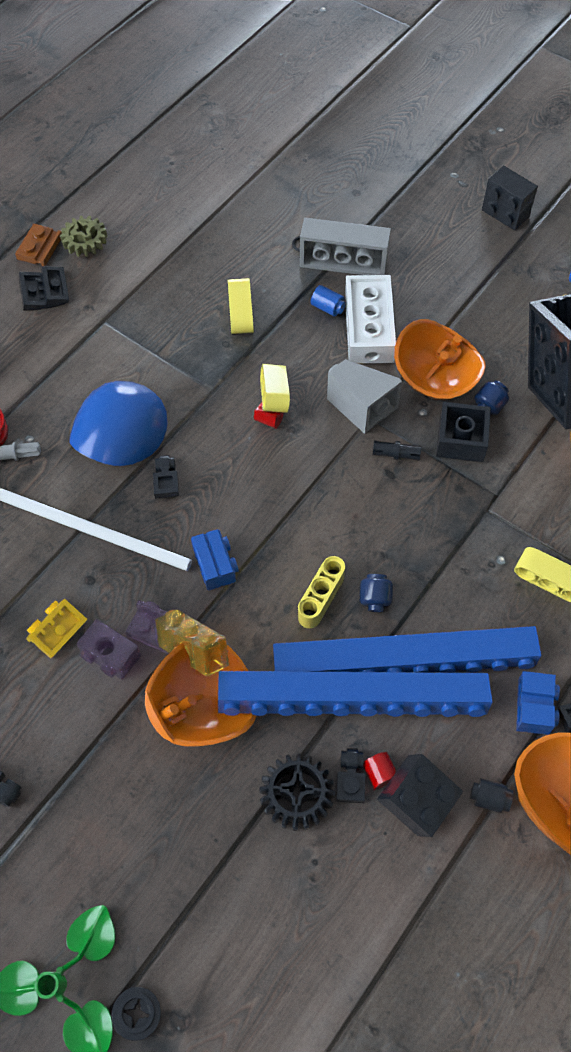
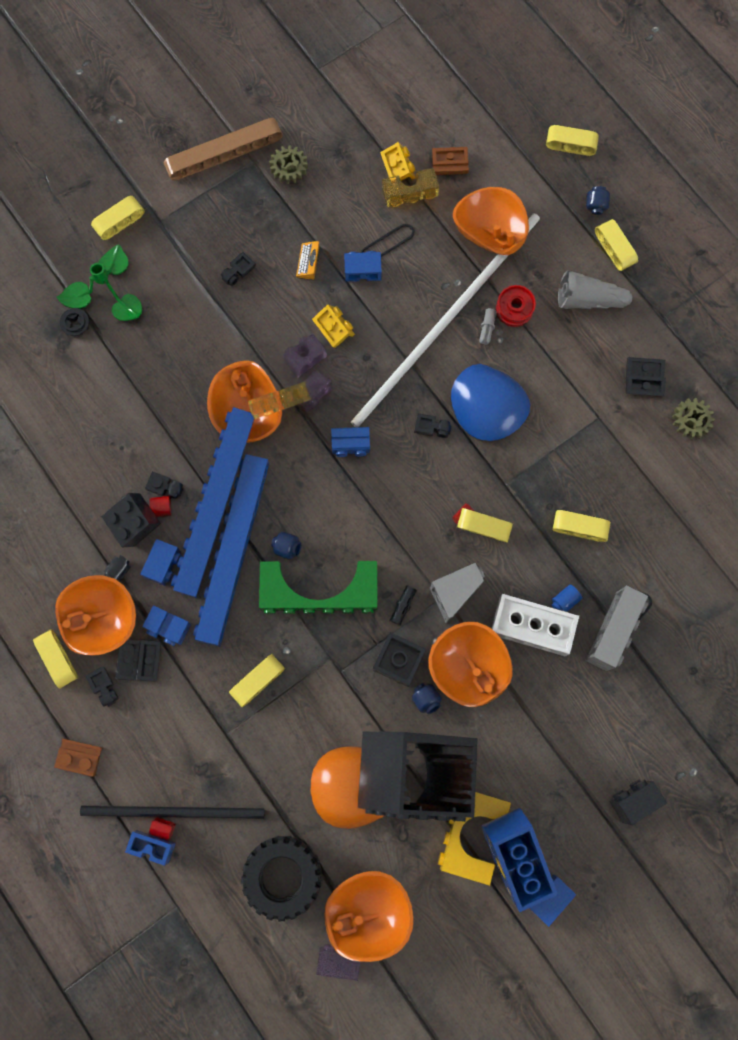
camera: 105 degrees right, 15 degrees up
(38, 245) = (695, 382): dark orange plate -> none
(297, 767) = (152, 440): black gear -> none
(324, 581) = (296, 499): light yellow beam -> none
(405, 496) = (277, 595): none -> green arch
(459, 739) = (160, 562): none -> blue brick

